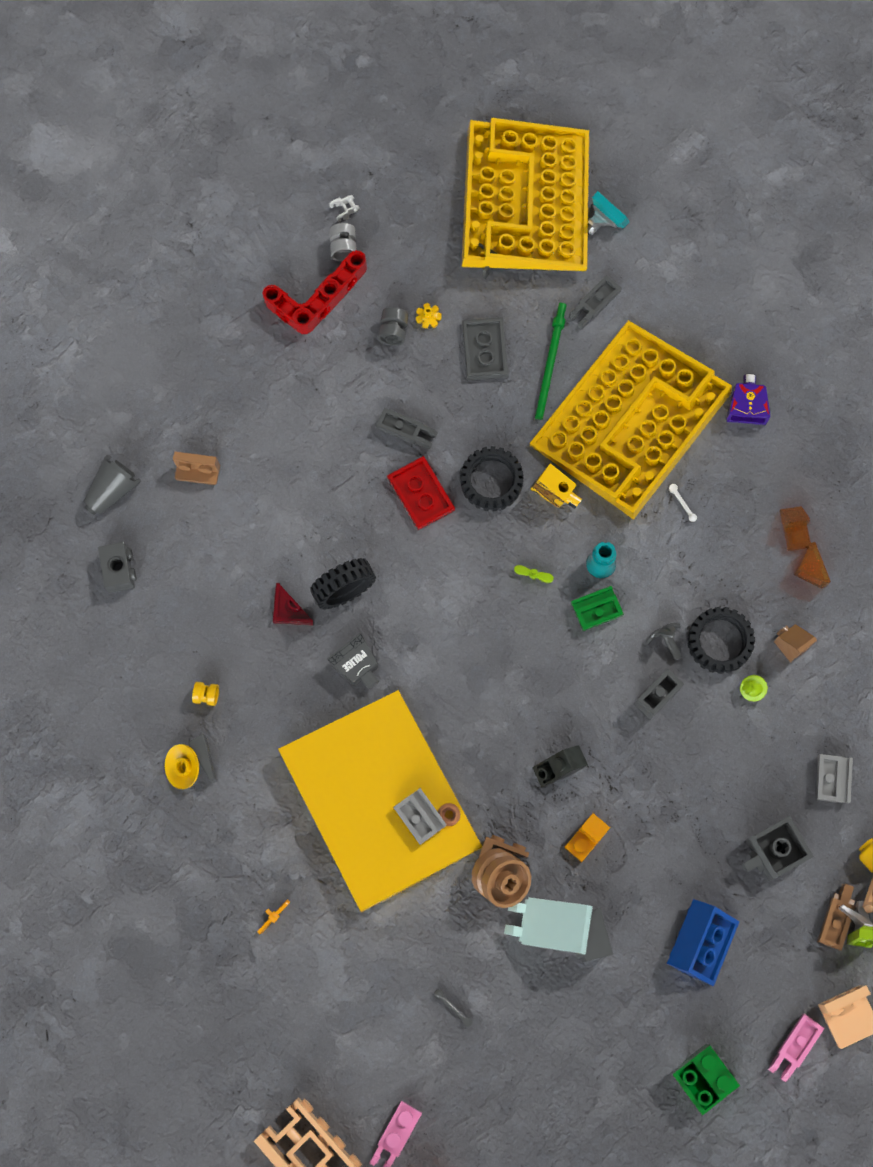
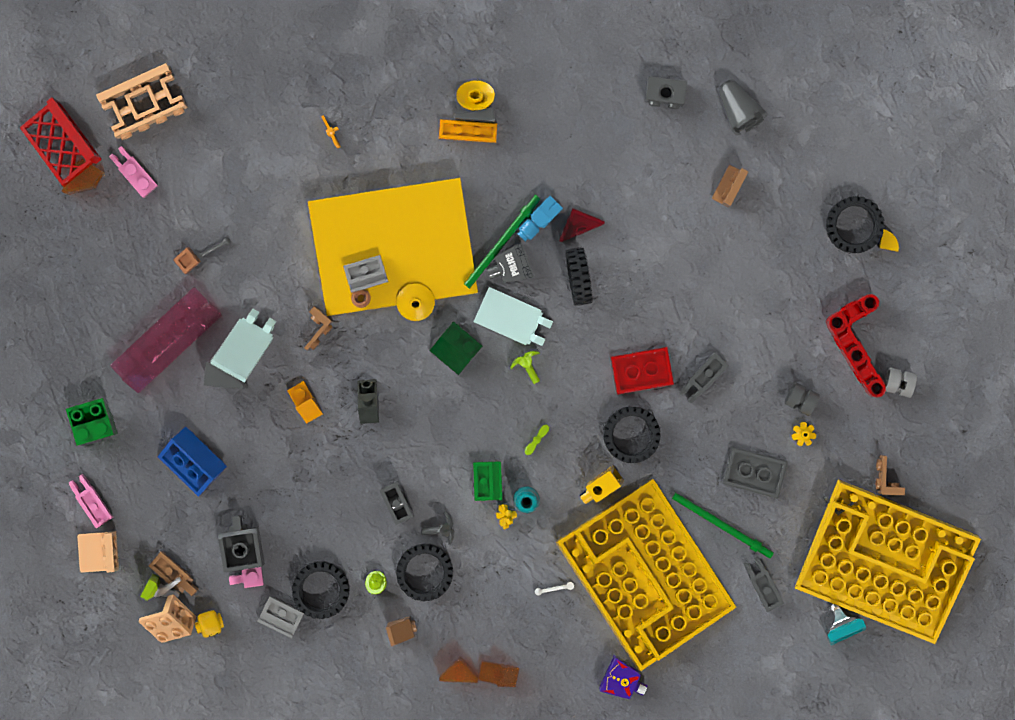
camera: 105 degrees right, 15 degrees up
(185, 318) = (873, 210): none -> black tyre
(204, 301) = (888, 242): none -> yellow tile
(205, 693) = (531, 129): yellow wheel -> none
(224, 762) = (468, 131): none -> light orange tile
(294, 650) = (539, 218): none -> dark azure piece
(294, 669) = (525, 212): none -> green bar
(341, 202) = (932, 404): white piece -> none
(413, 645) = (511, 317): none -> light aqua tile
(428, 762) = (418, 293): none -> yellow dish
(450, 226) = (892, 488): none -> medium nougat bracket
(455, 608) = (526, 362): none -> lime plant
(466, 691) = (455, 348): none -> dark green slope
(476, 1032) = (187, 260): none -> nougat tile
(501, 878) = (294, 321): medium nougat wheel -> none
(578, 1024) = (166, 340): none -> clear pink slope
(627, 576) = (505, 515): none -> yellow plant
(807, 829) = (250, 577): none -> bright pink plate
(810, 733) = (311, 611): none -> black tyre

